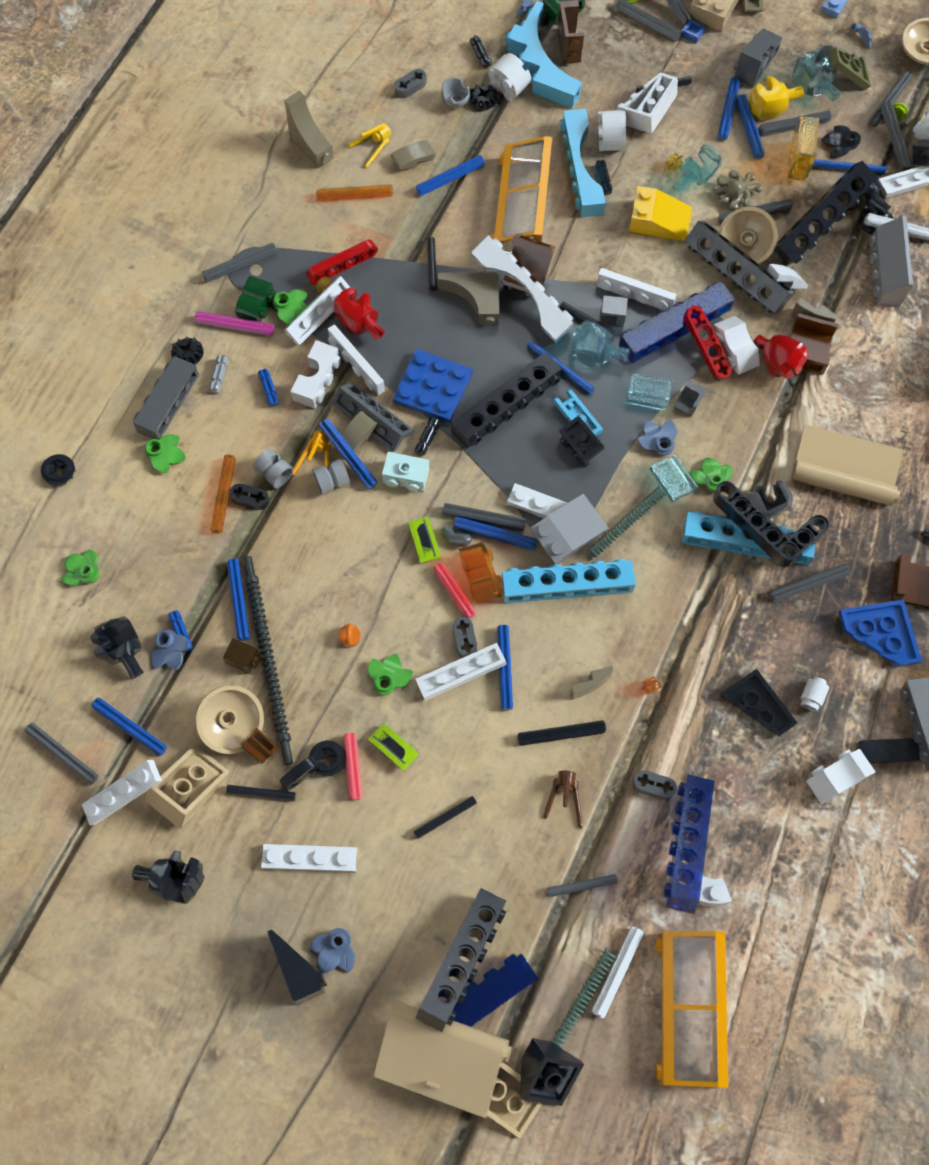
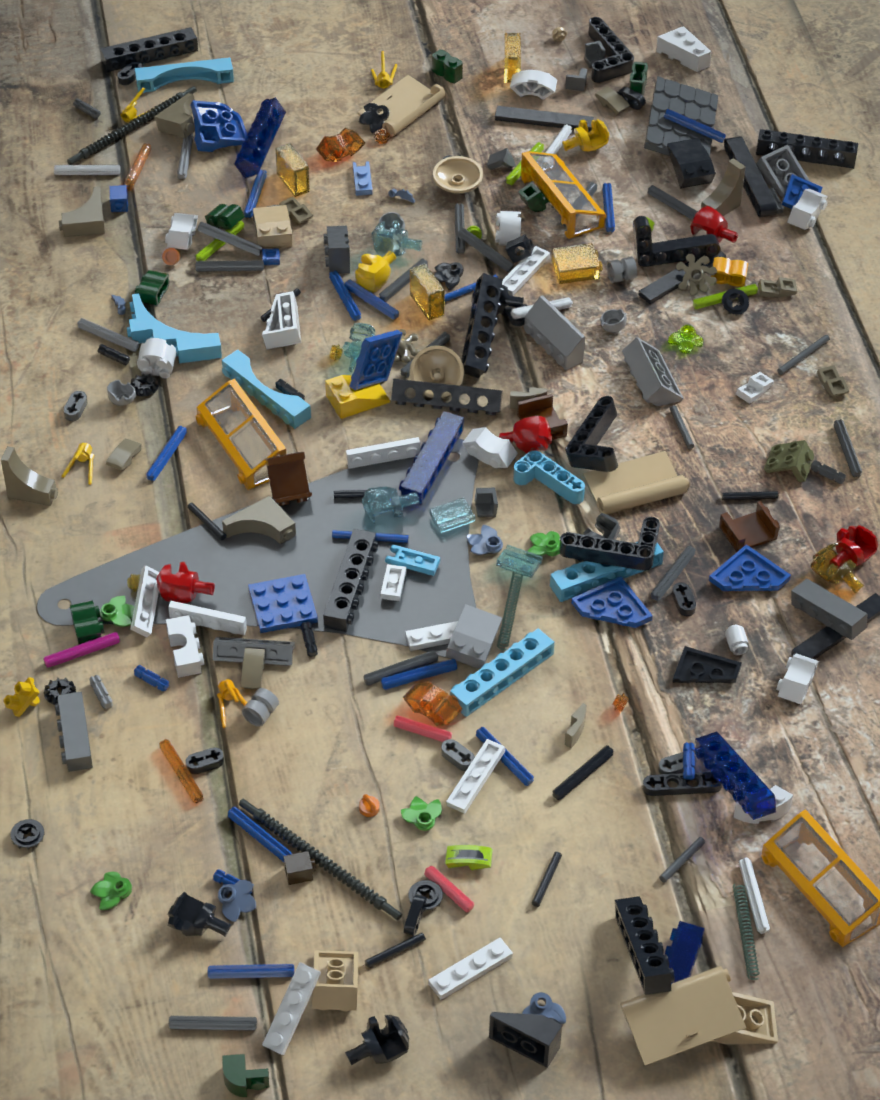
camera: 35 degrees left, 20 degrees down
(36, 822) = (239, 1079): none -> dark green brick
(147, 339) = (25, 695): none -> yellow hips
(167, 453) = (108, 771): bright green plate -> none
(239, 262) = (46, 606): dark grey axle -> none
(244, 715) = (330, 911): tan dish -> none
(258, 745) = (366, 918): reddish brown piece -> none
(273, 468) = (208, 728): light grey wheel -> none
(342, 261) = (134, 557): red beam -> none
(348, 453) = (257, 683): blue axle -> none
(354, 192) = (98, 506): clear orange axle -> none
(405, 471) = (315, 671): light aqua brick -> none
(424, 539) = (369, 707): lime slope -> none
(456, 539) = (392, 695): dark grey arm -> none
(490, 28) = (108, 334): none -> light grey axle
(494, 259) = (262, 484): white arch -> none
(542, 427) = (393, 582): none -> white plate
(548, 1072) = (762, 981): black slope -> none
(566, 783) = (616, 801): reddish brown plant -> none
(569, 41) = (183, 313): reddish brown panel -> none
(581, 440) = (431, 573): black bracket -> none
(612, 130) = (272, 353): white brick -> none
(615, 307) = (378, 471): light grey panel -> none
(645, 805) = (683, 787): none -> black beam
(664, 792) = (688, 761): none -> blue axle
(694, 192) = (375, 359): none -> blue plate
(704, 344) = (467, 460): red beam -> none
(725, 578) = (613, 603): none -> blue plate
(770, 412) = (549, 473): none -> medium azure beam
(787, 275) = (488, 383): white slope -> none
(802, 619) = (688, 598): none -> black beam
(821, 399) = (584, 449): none -> black beam
(851, 67) = (415, 220): olive wing -> none

